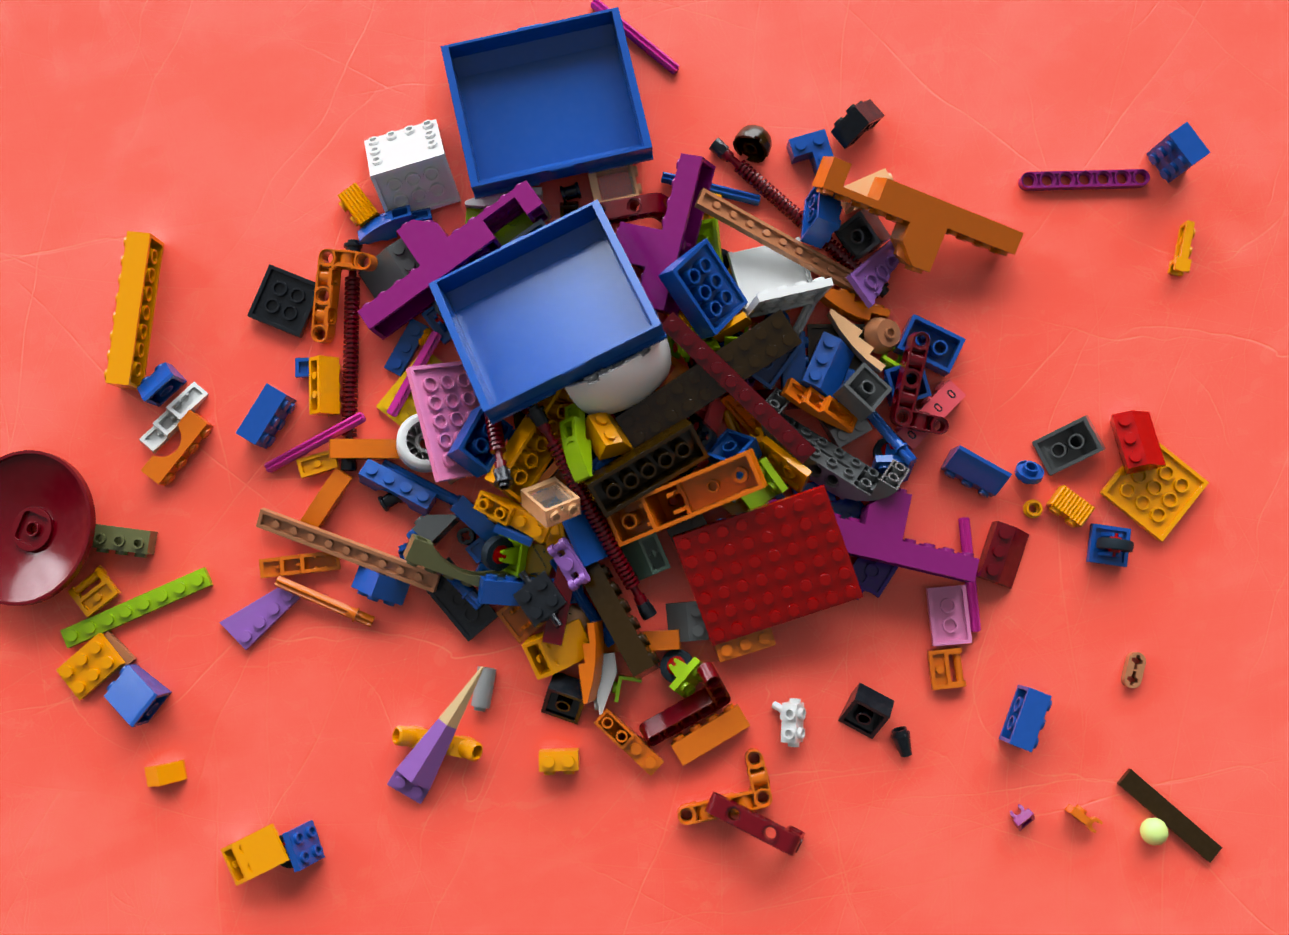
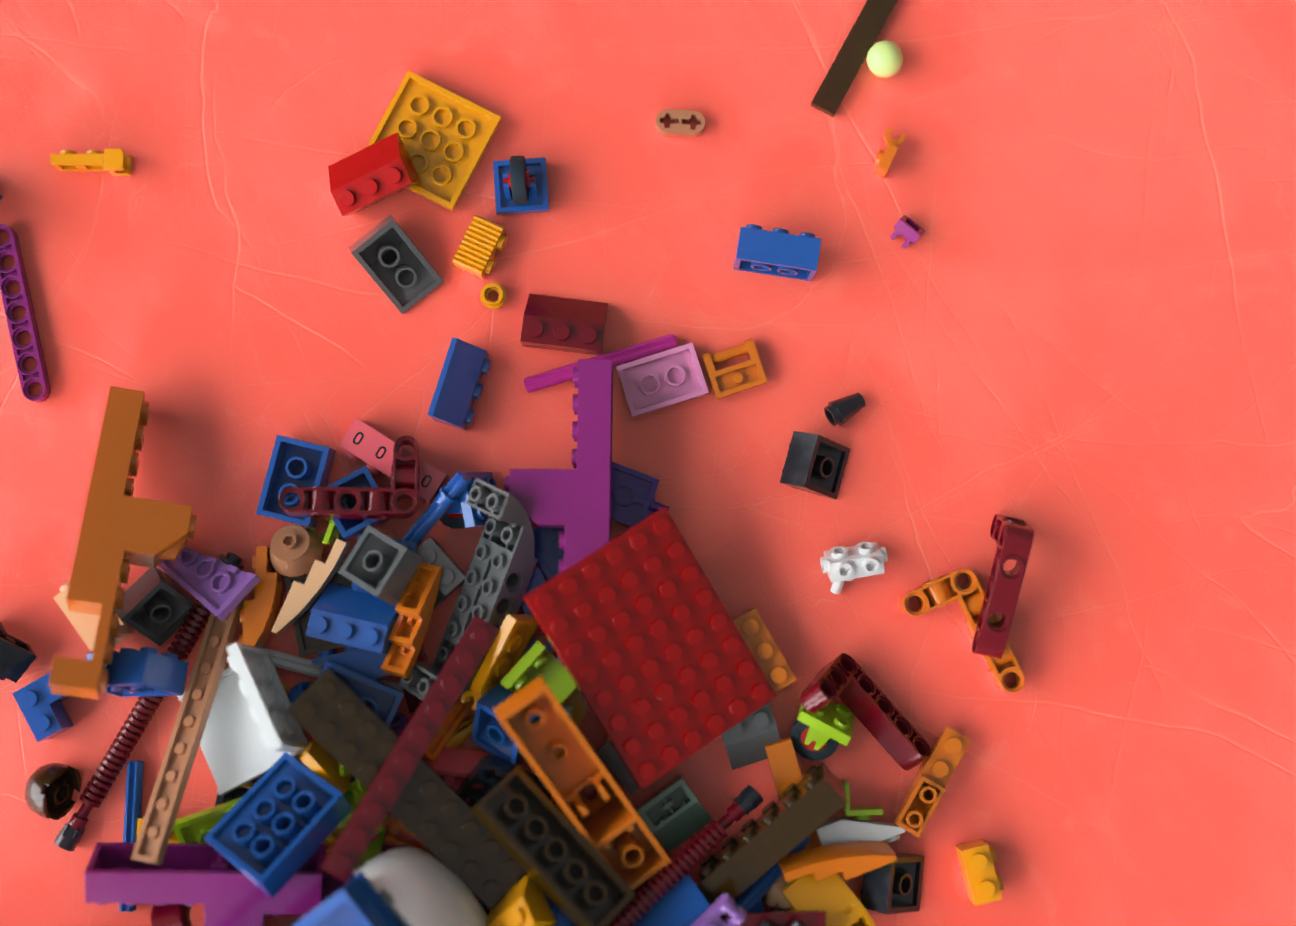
camera: 100 degrees left, 0 degrees up
(709, 734) = (895, 670): orange brick -> none
(1029, 472) = (444, 310): blue plate -> none

